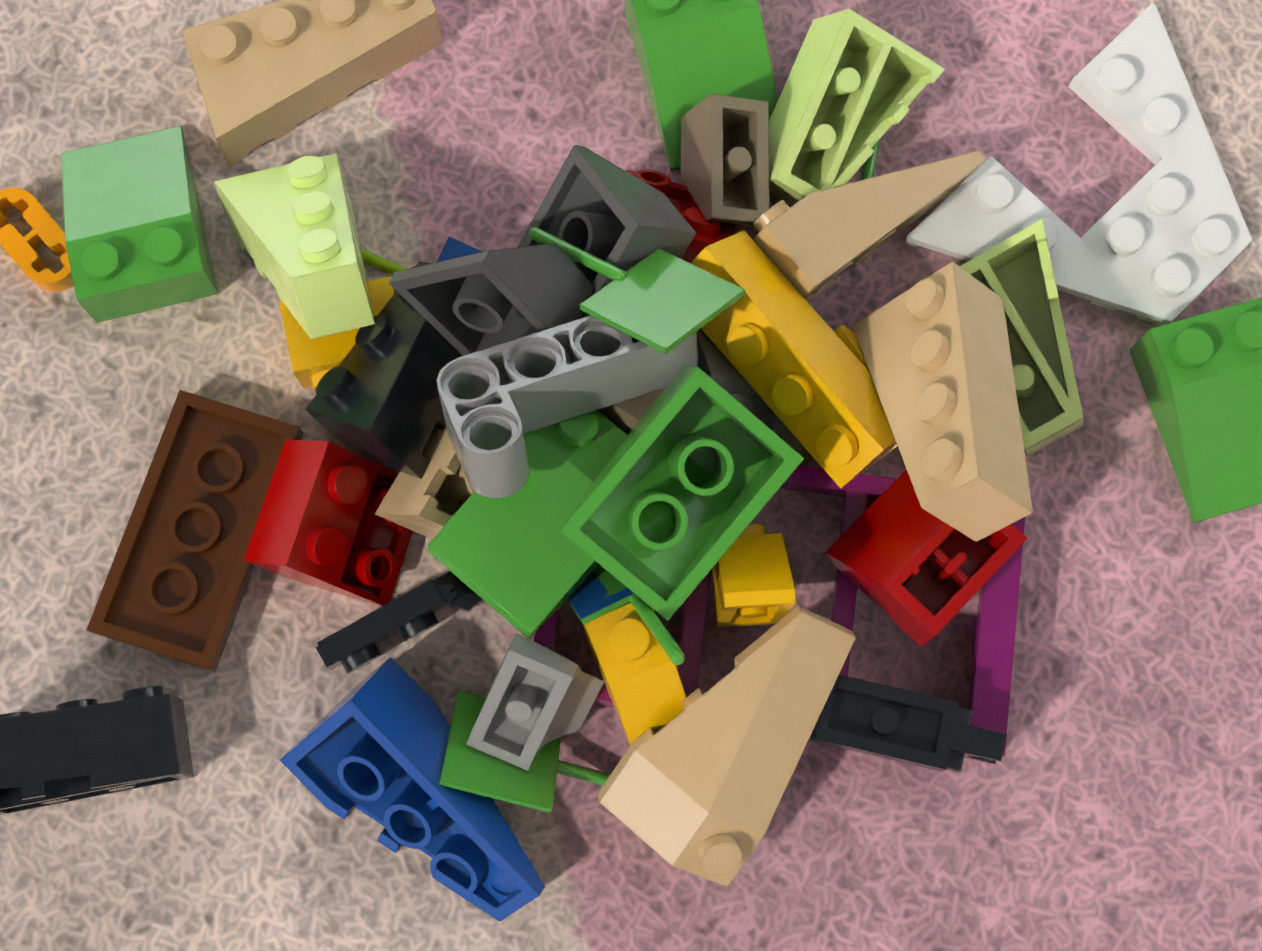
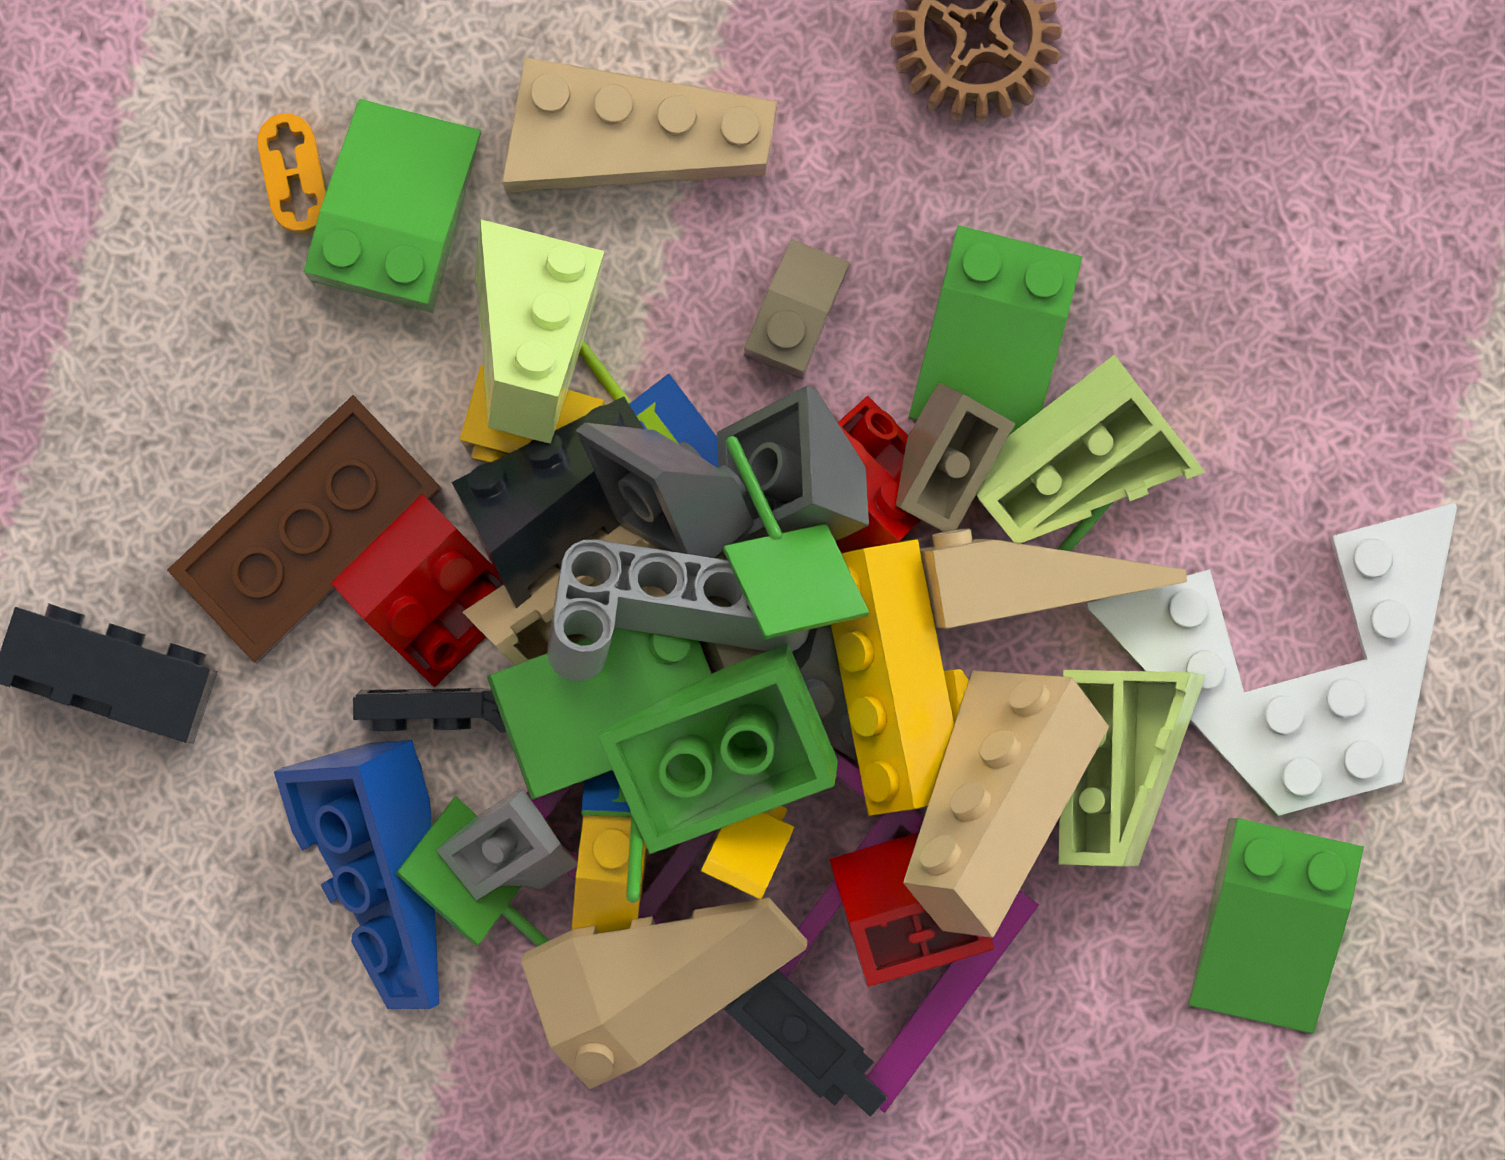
camera: 30 degrees right, 10 degrees up
(527, 131) = (796, 309): none -> dark tan slope

